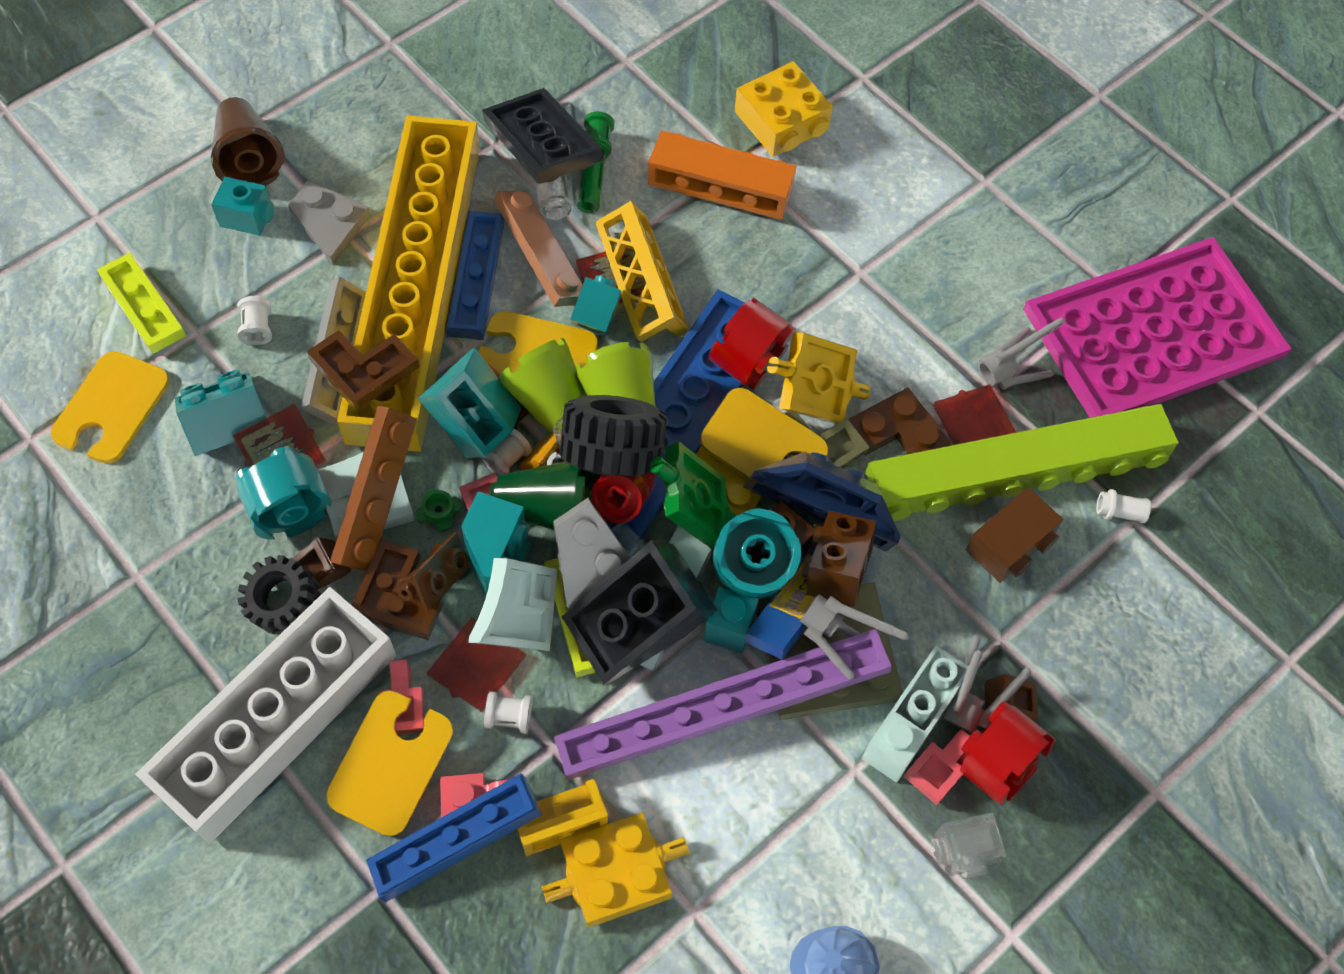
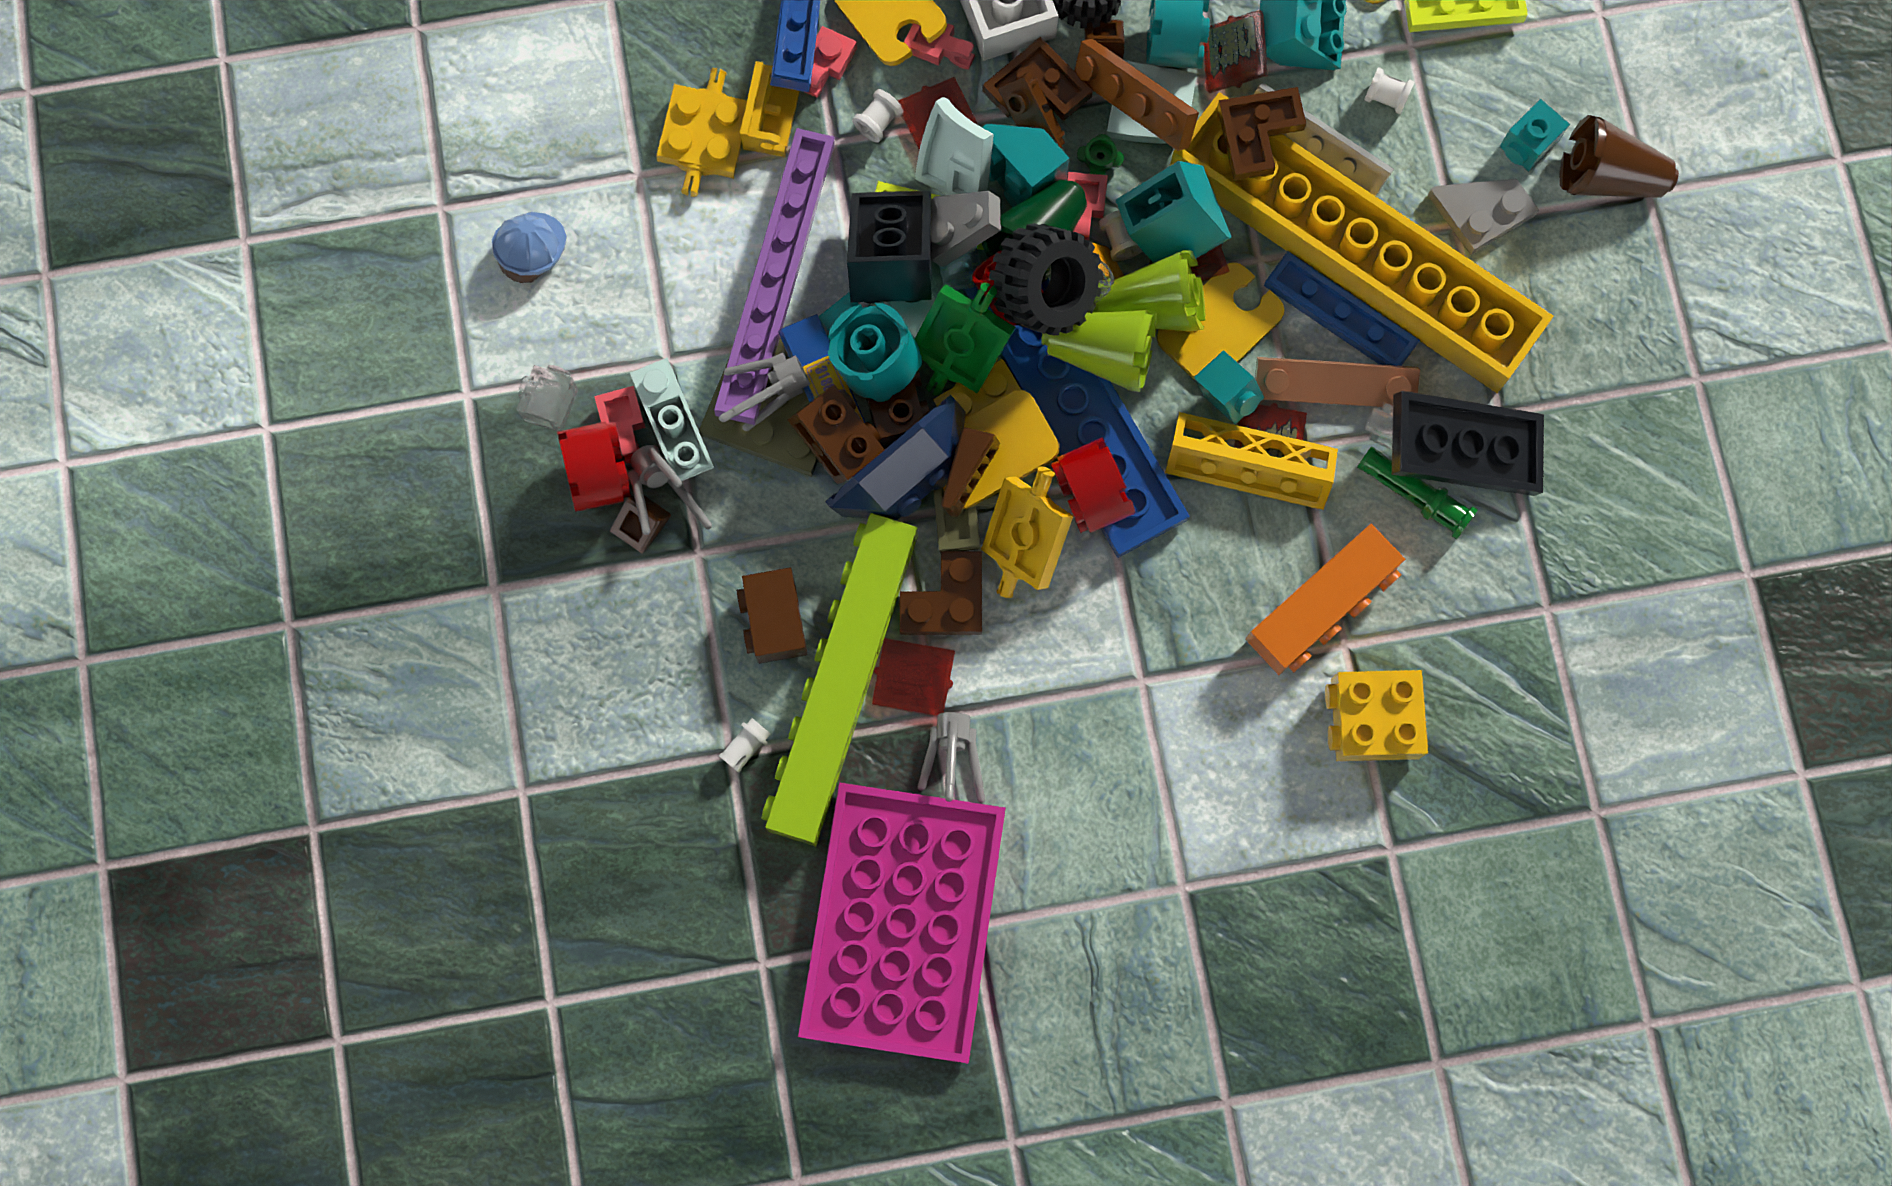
camera: 125 degrees right, 15 degrees up
(784, 441) = (970, 461): none -> reddish brown slope

